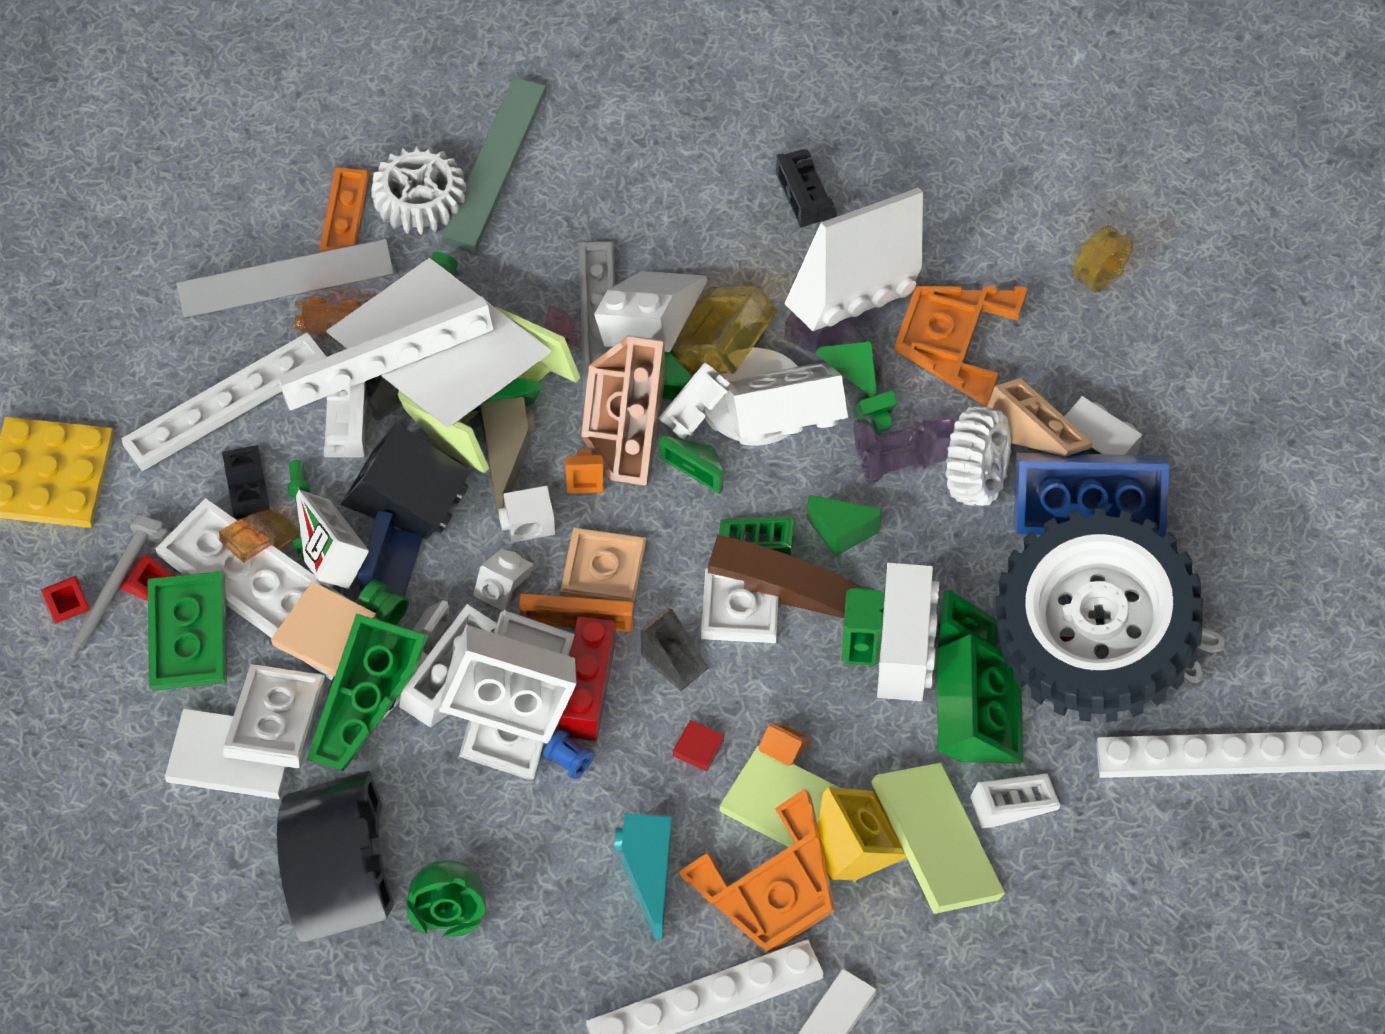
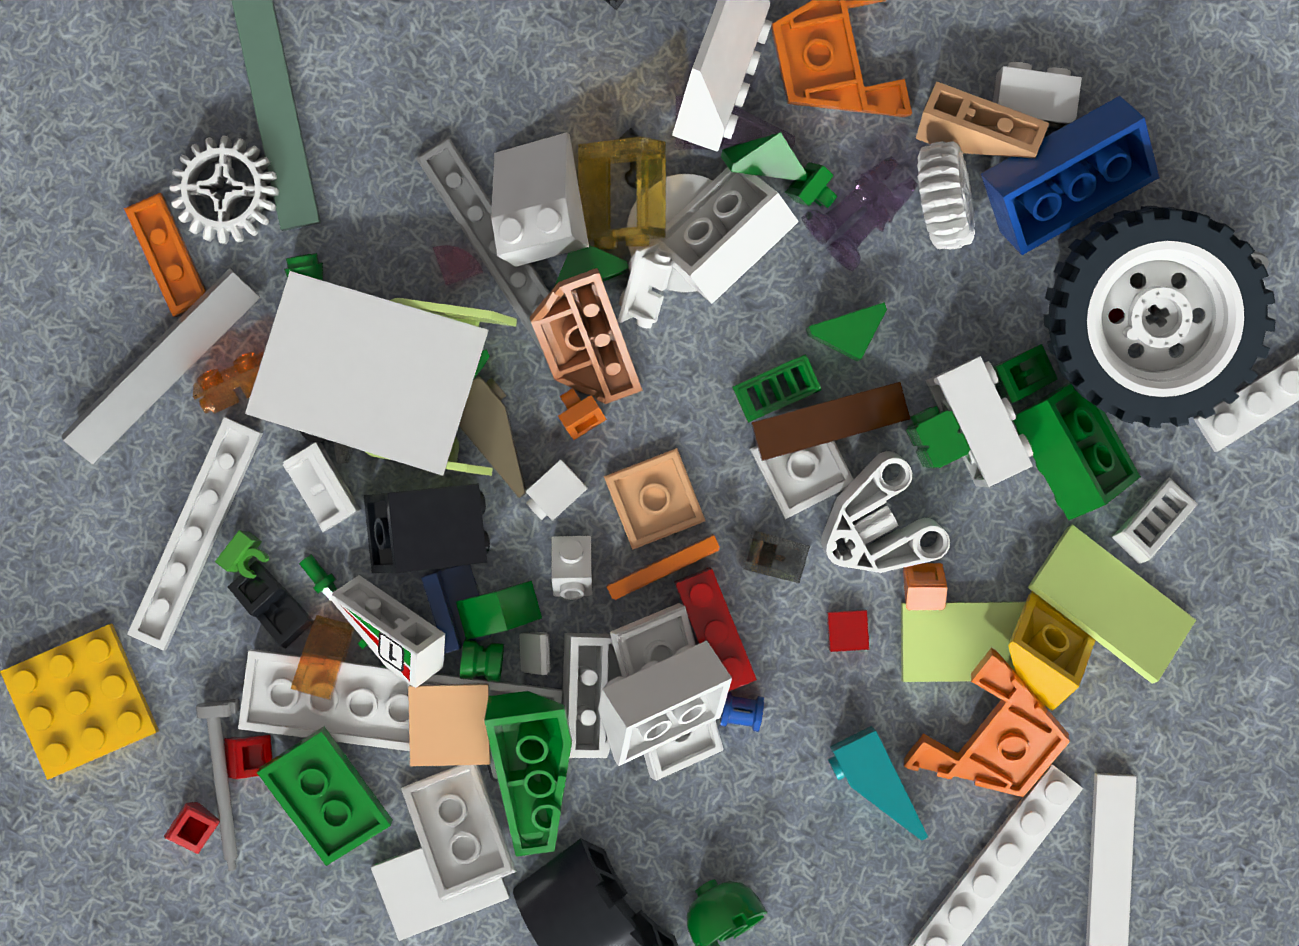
camera: 25 degrees left, 30 degrees up
(250, 429) = (238, 553): none -> bright green tile
(385, 353) = (323, 436): white plate -> none
(423, 574) = (498, 610): none -> green slope
(693, 459) = (676, 336): green slope -> none
(778, 641) = (892, 551): none -> white connector

